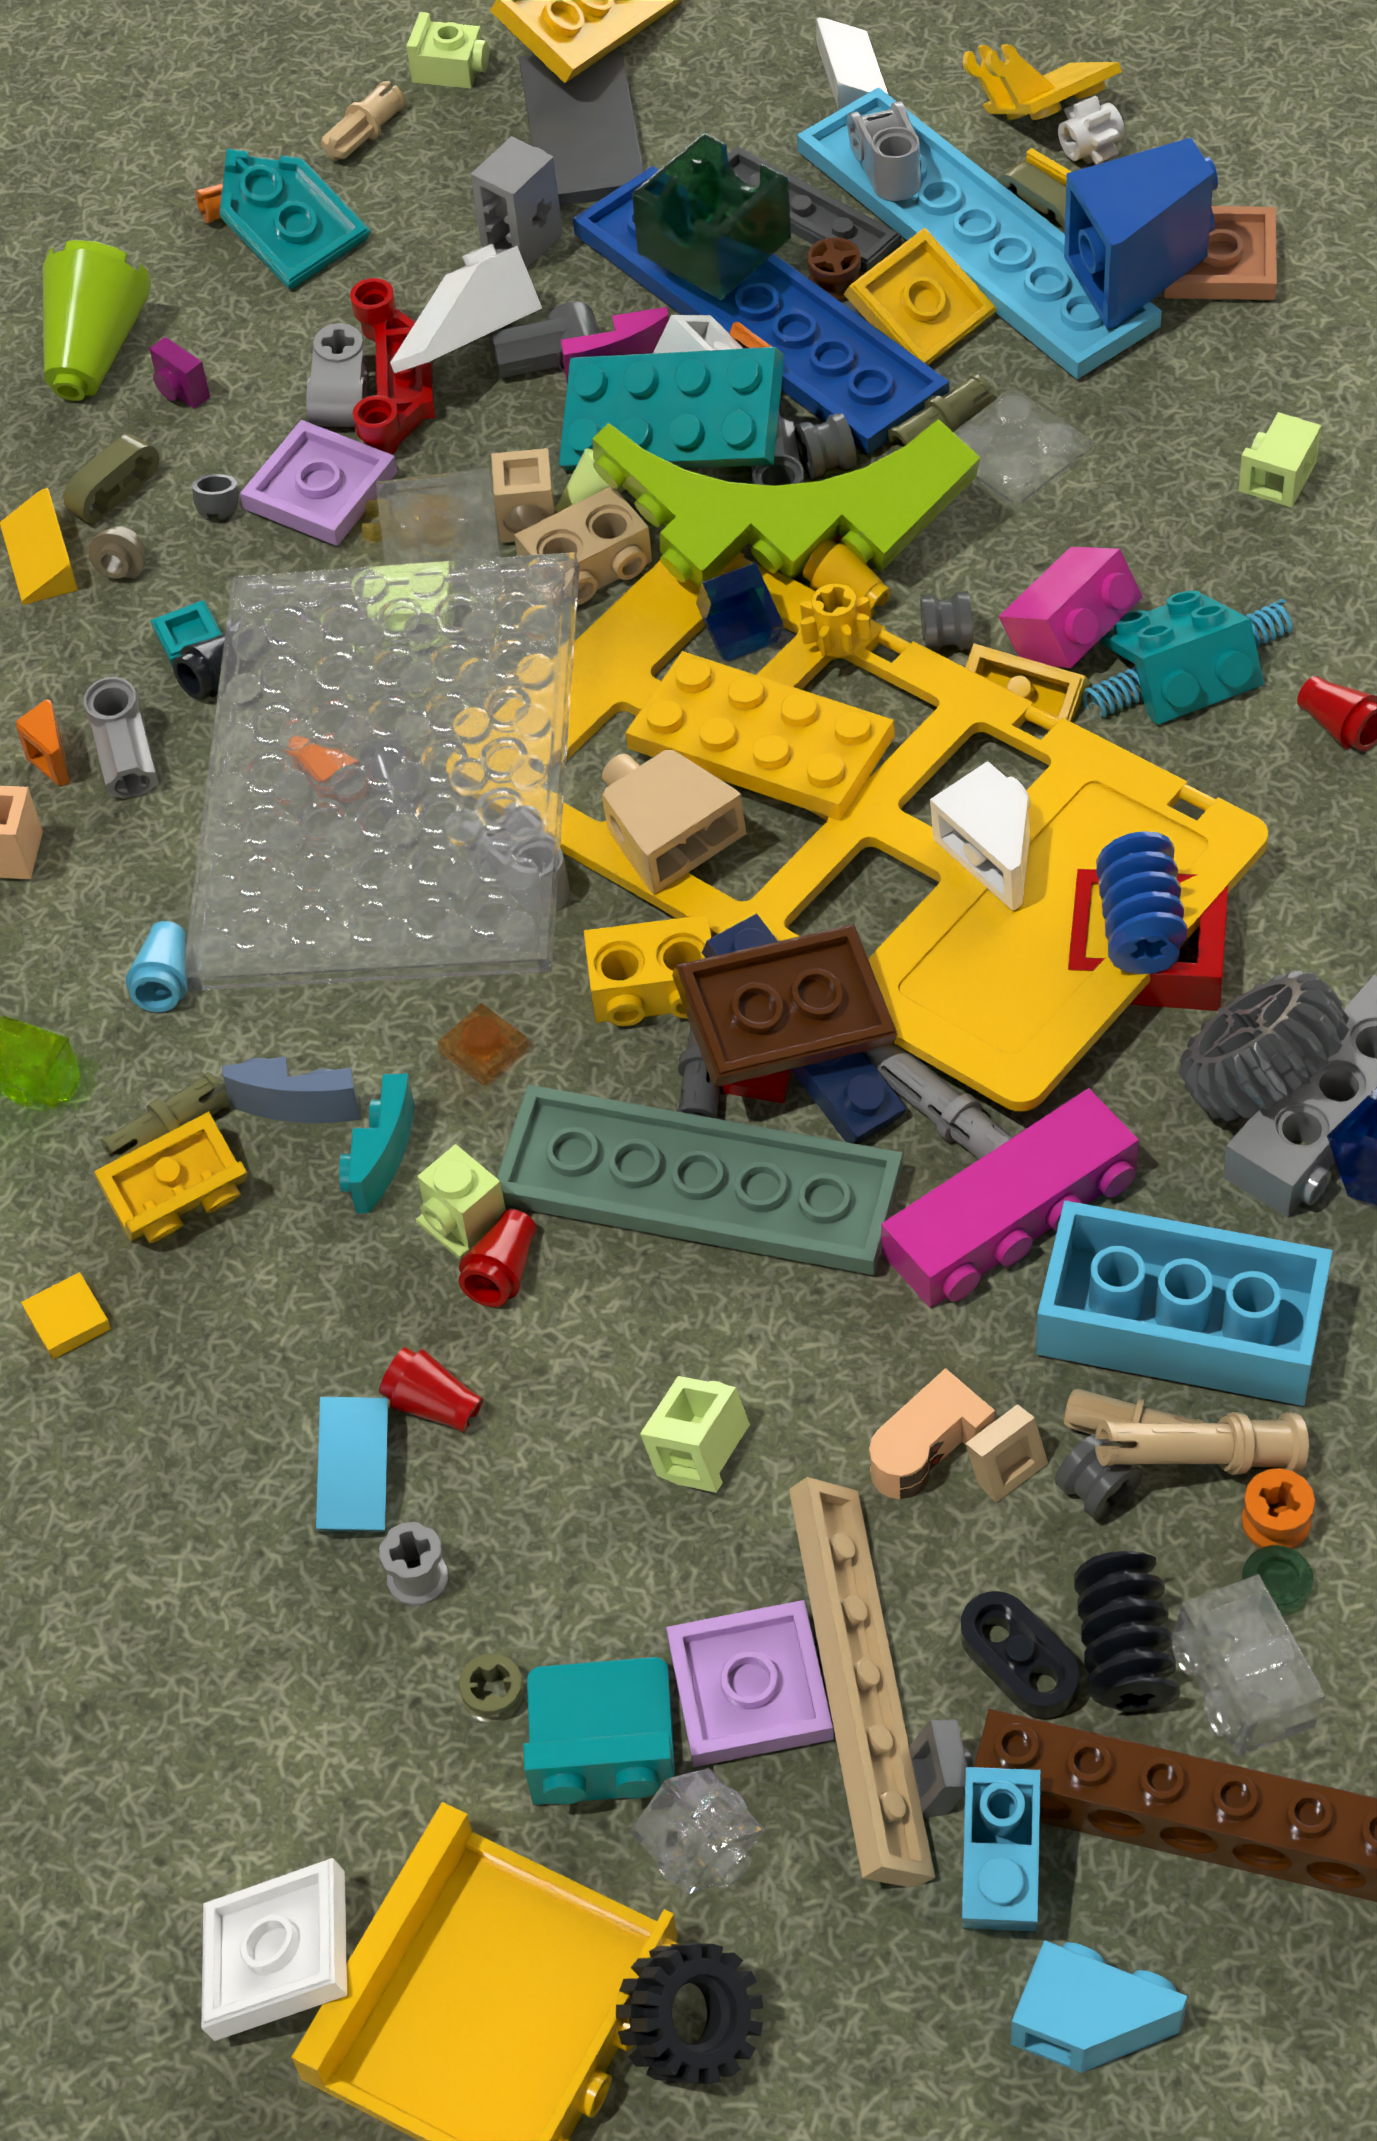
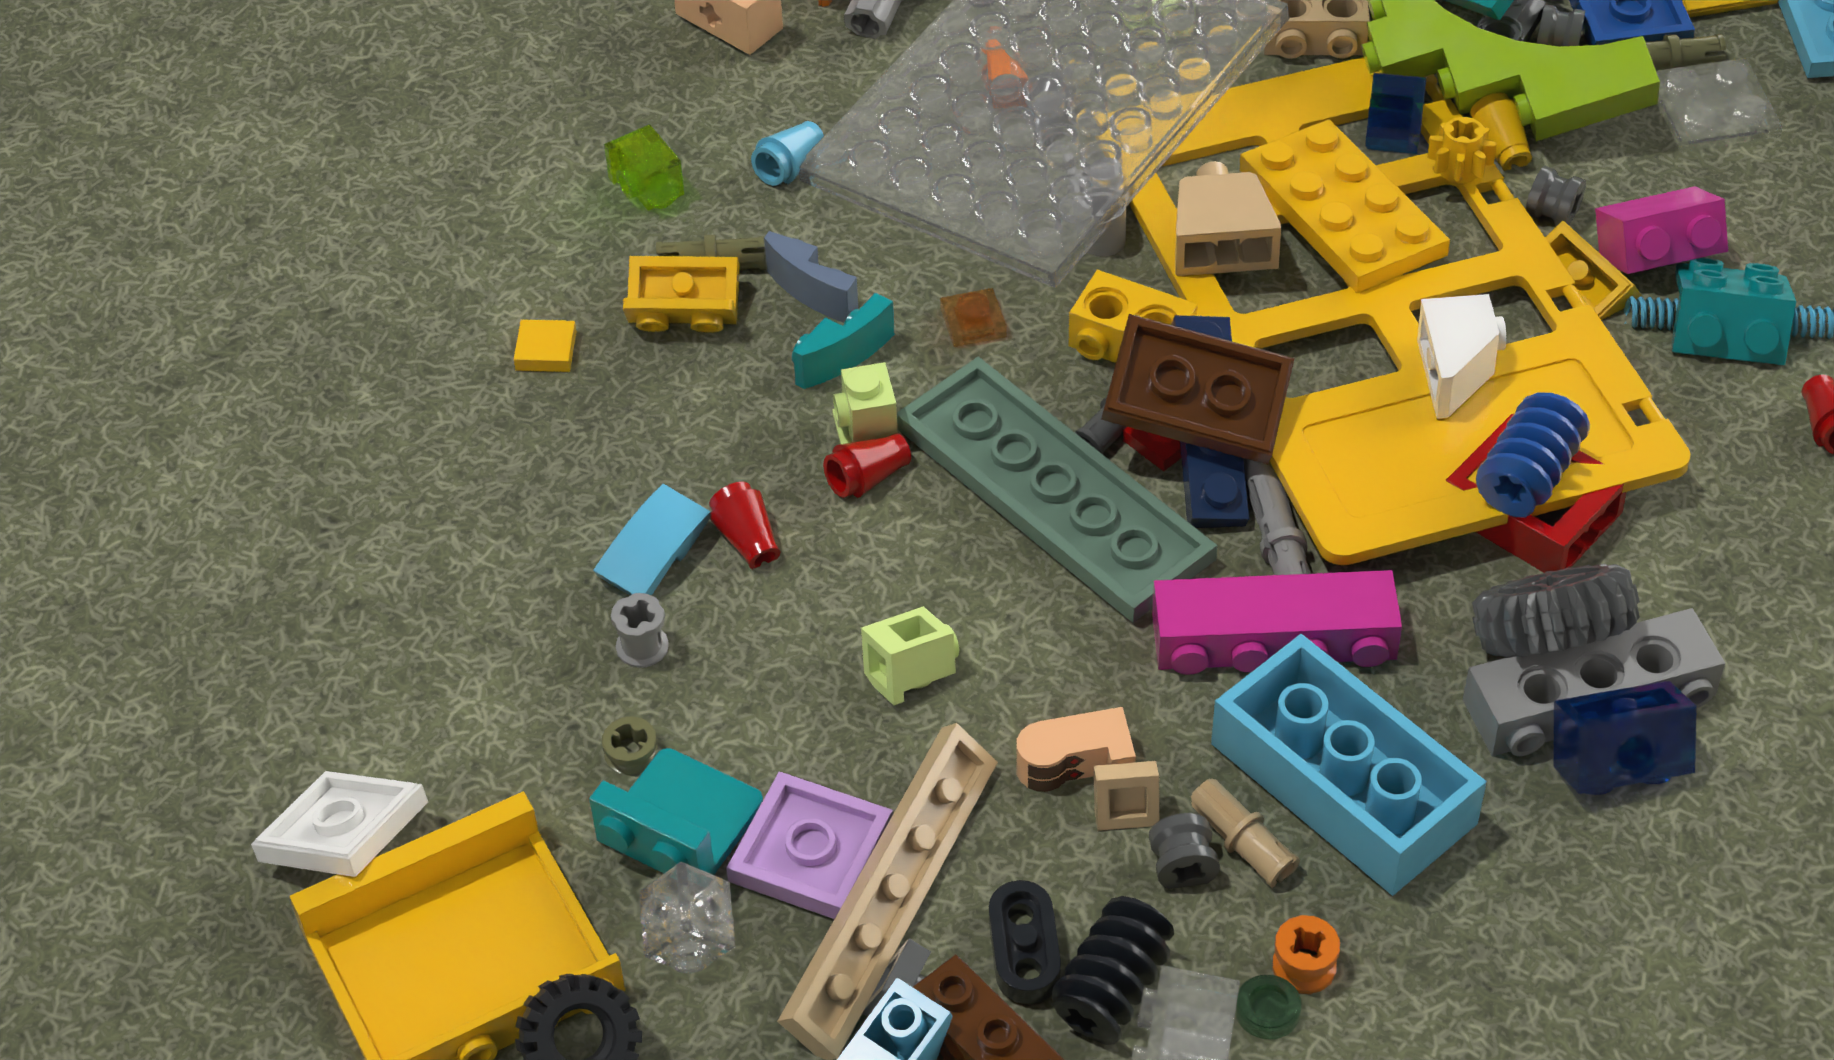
camera: 30 degrees right, 5 degrees down
(1231, 1443) = (1305, 884): tan pin -> none

